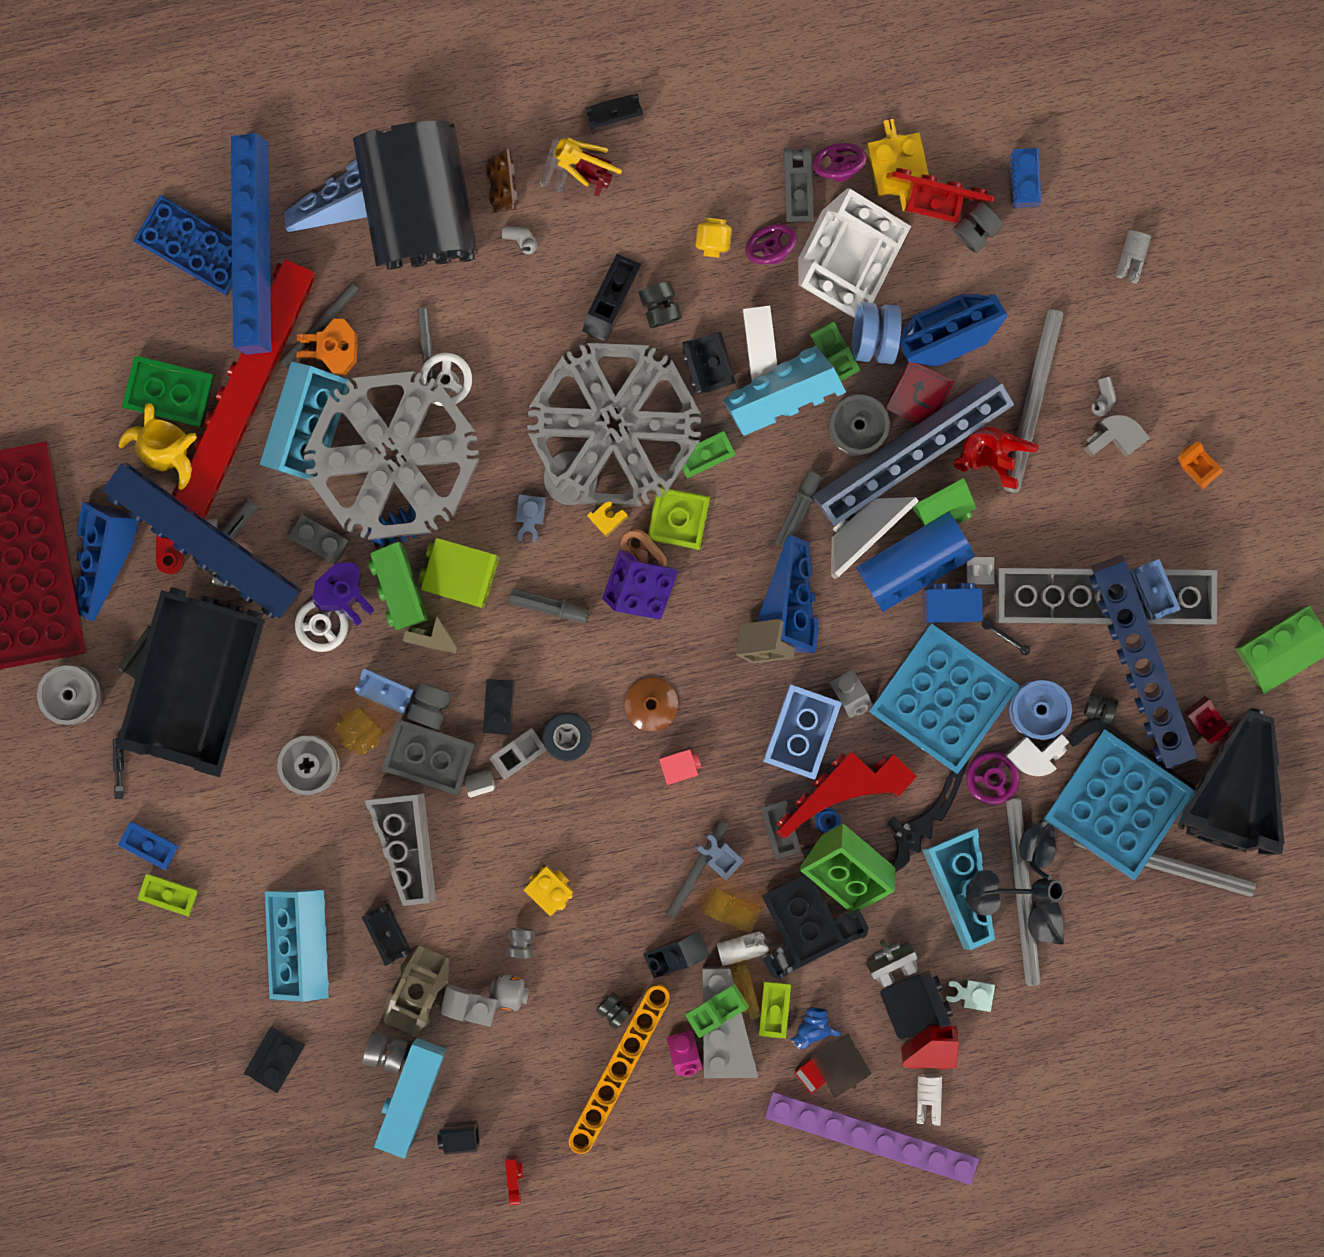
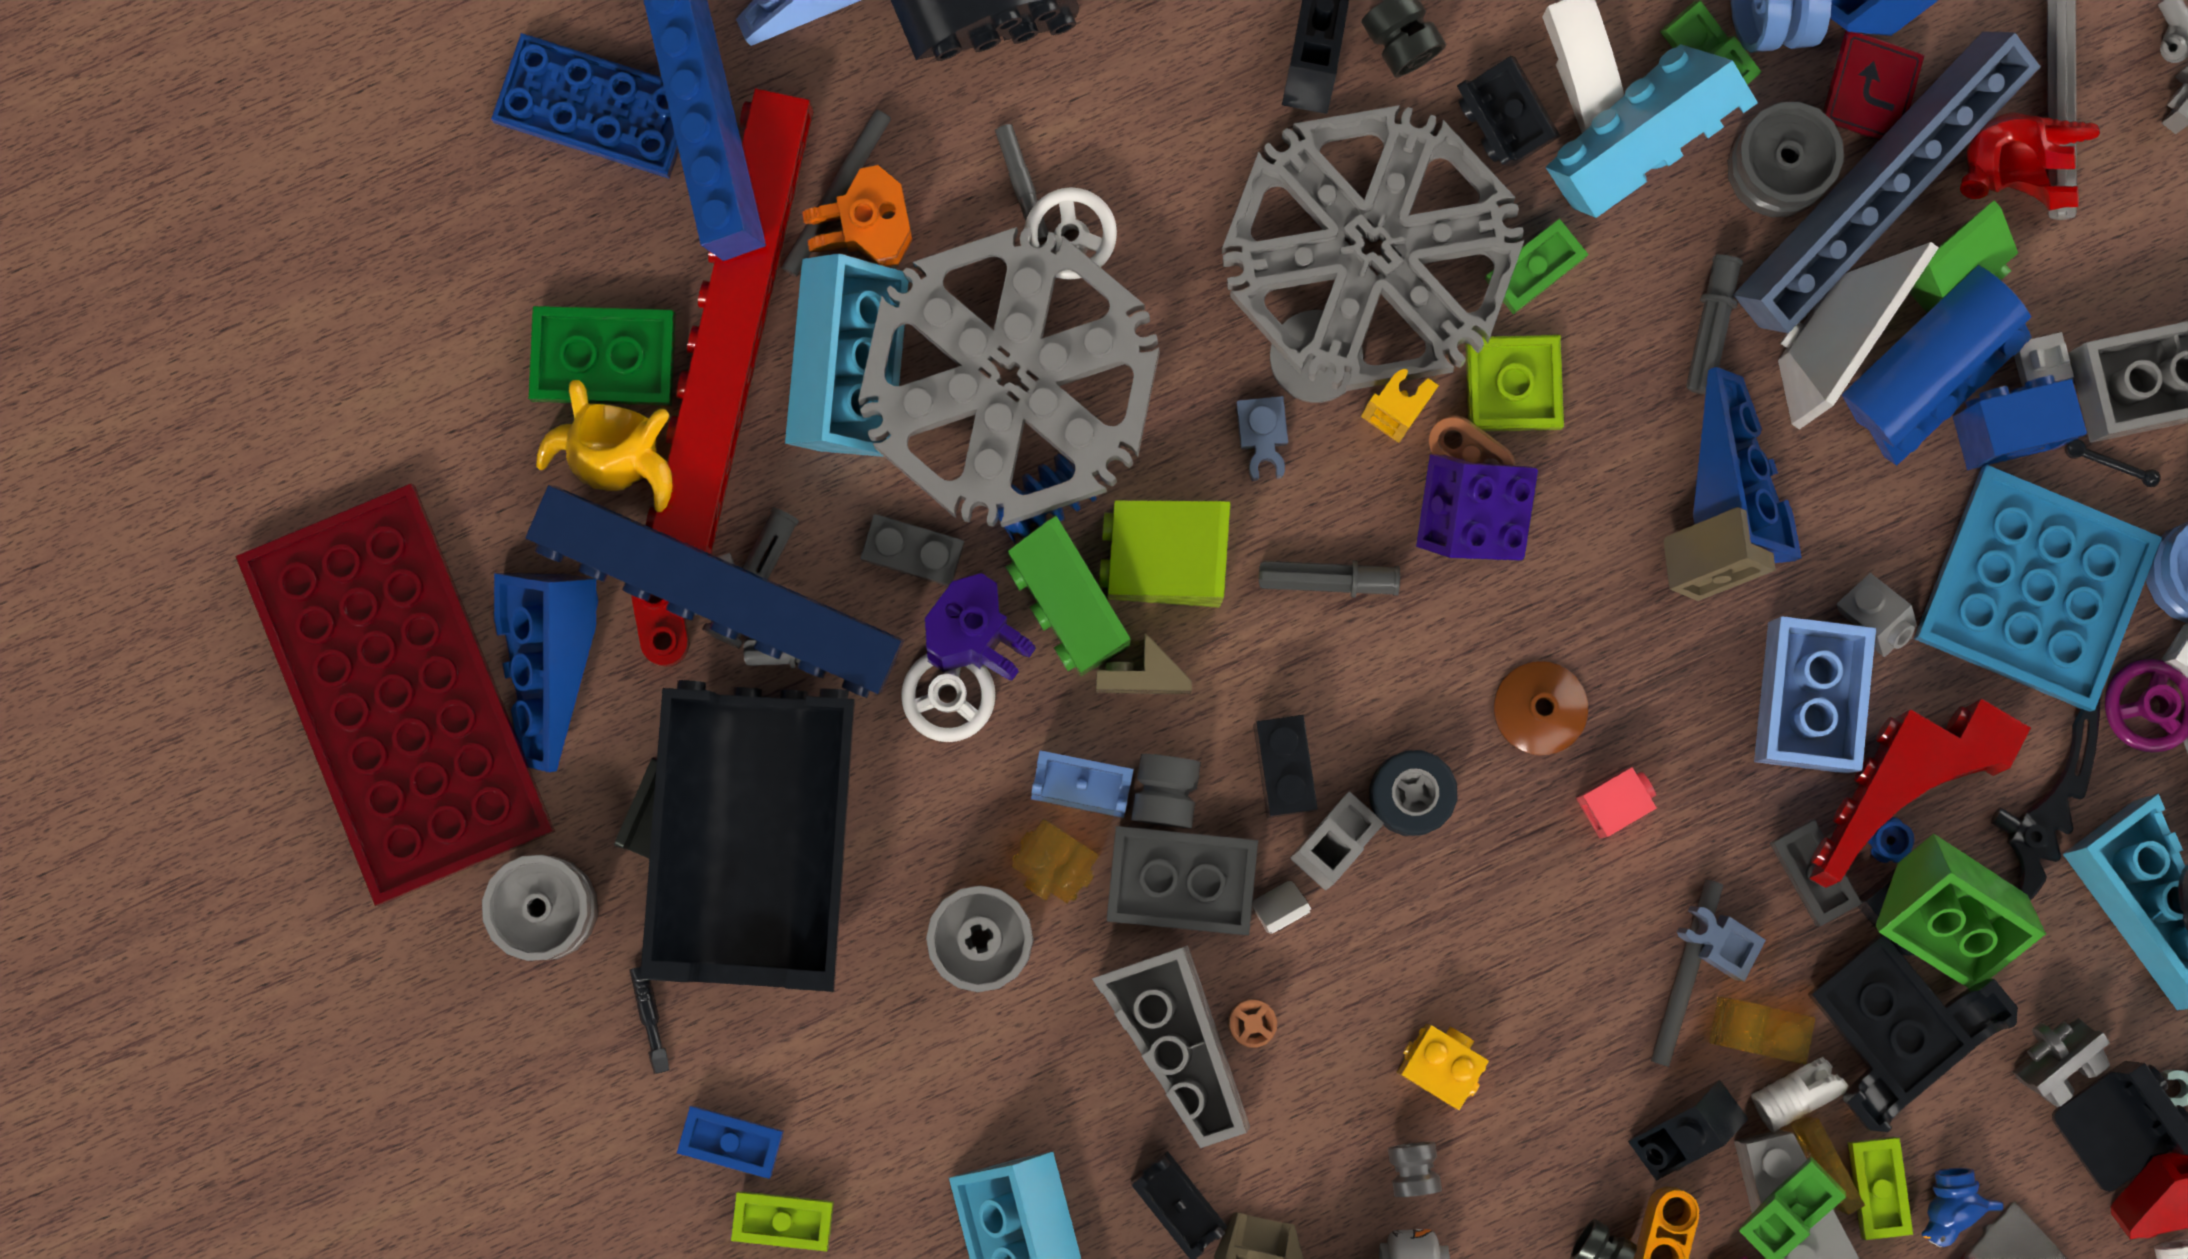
camera: 20 degrees left, 5 degrees down
(446, 841) = (1258, 1027): none -> nougat wheel

